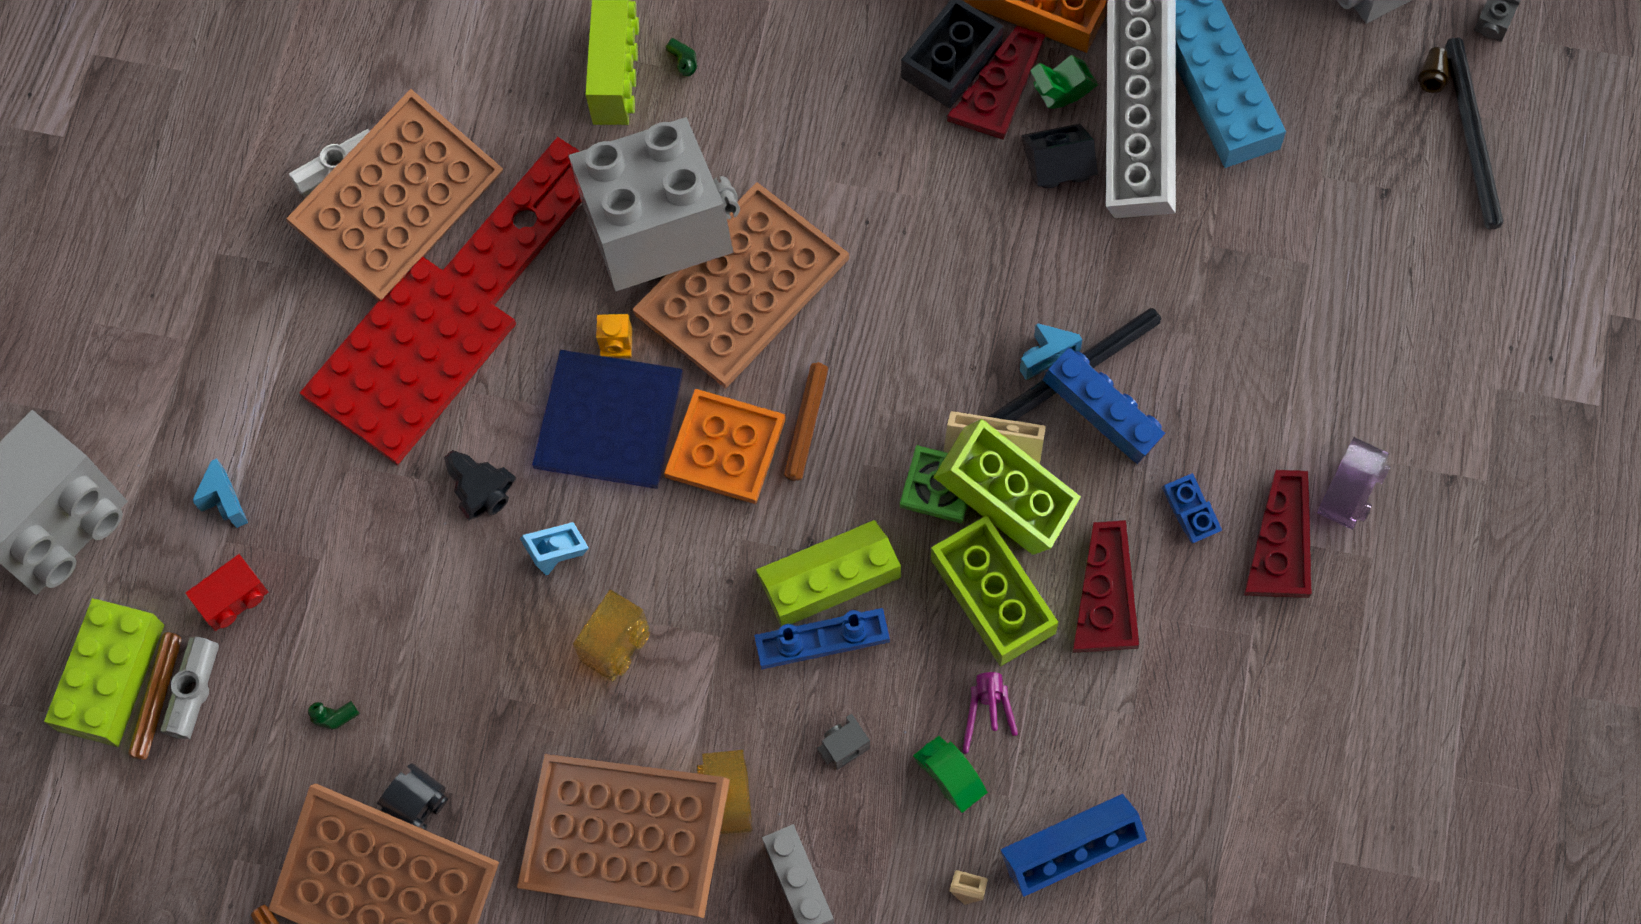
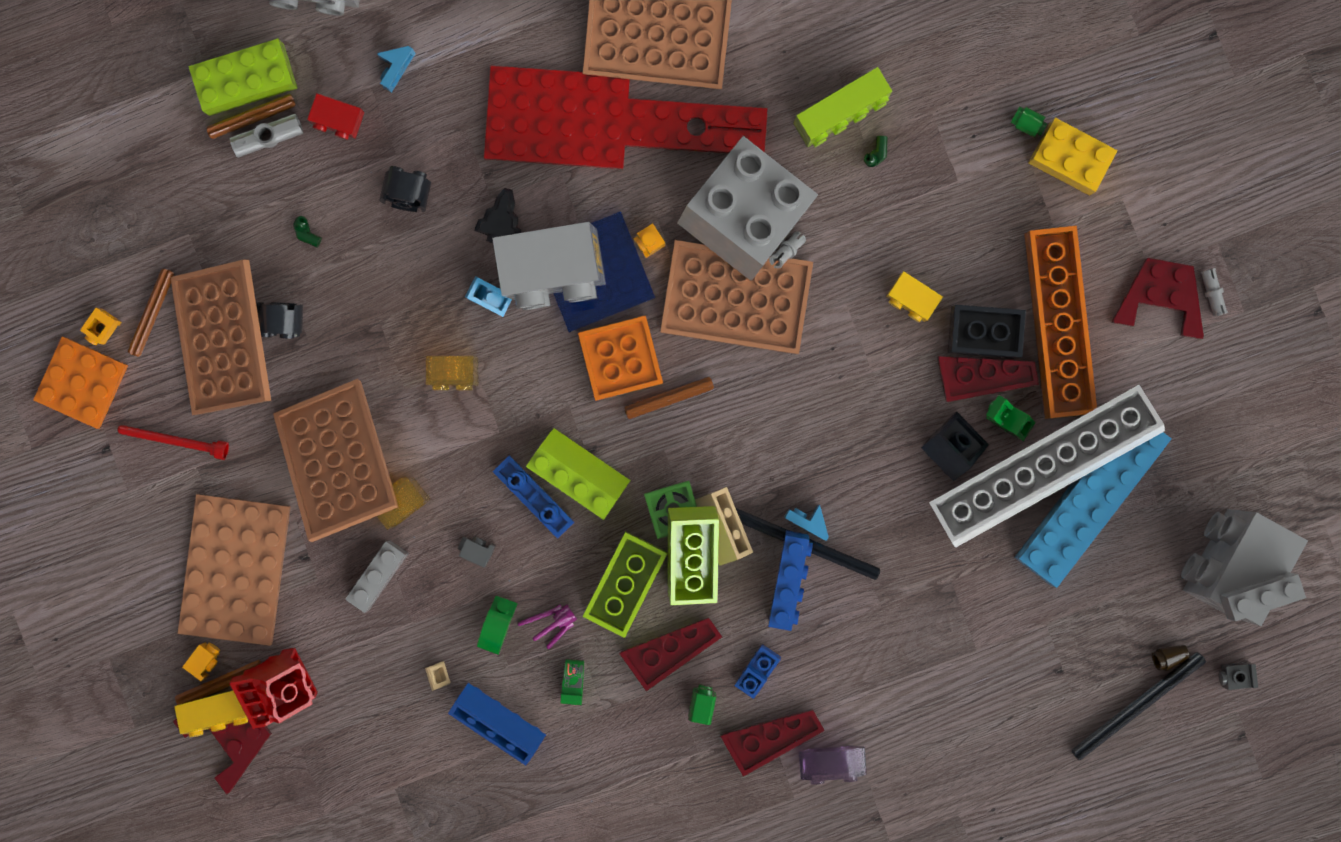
camera: 55 degrees right, 20 degrees up
(367, 563) = (405, 189): none -> black brick
(564, 434) = (549, 263): none -> light grey brick
(865, 104) = (913, 297): none -> yellow piece
(1076, 725) = (573, 682): none -> green leg
(1194, 584) = (702, 705): none -> green brick

